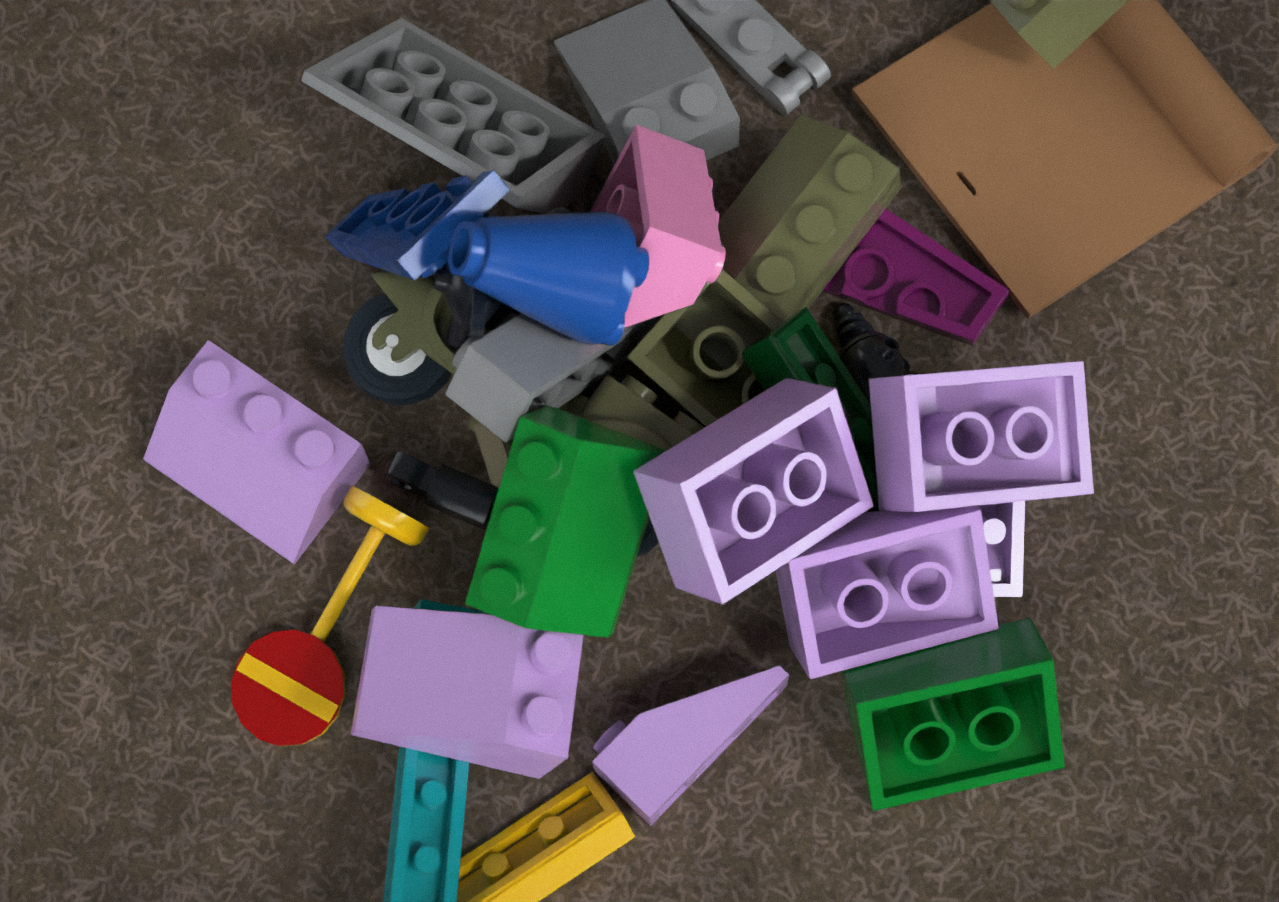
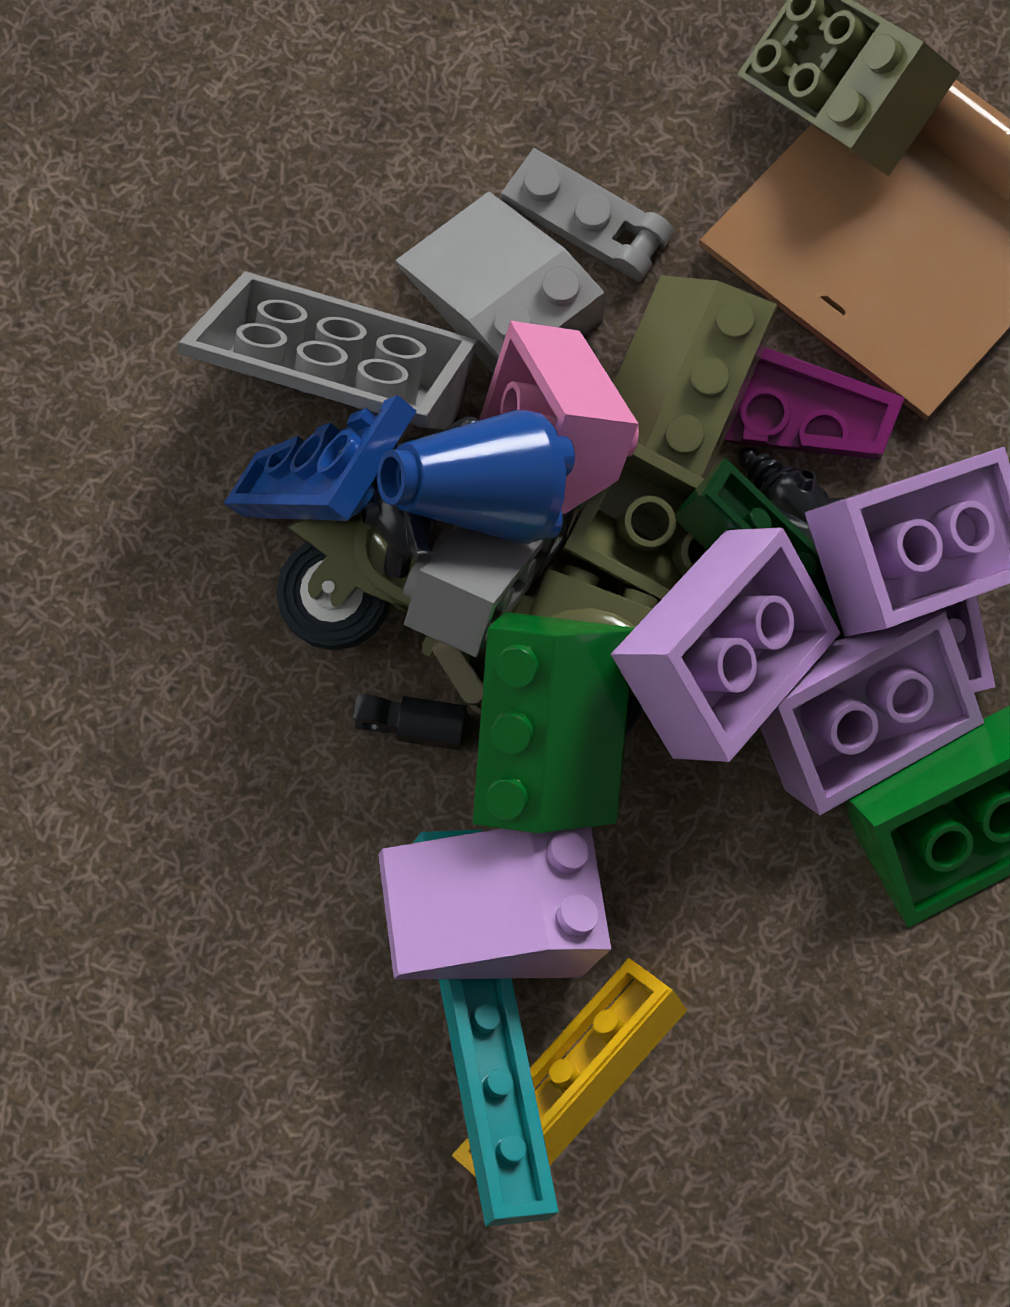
camera: 15 degrees left, 0 degrees up
(253, 452) = (214, 729): lavender slope -> none
(291, 681) = (310, 944): piece -> none
(674, 744) = (702, 911): lavender slope -> none

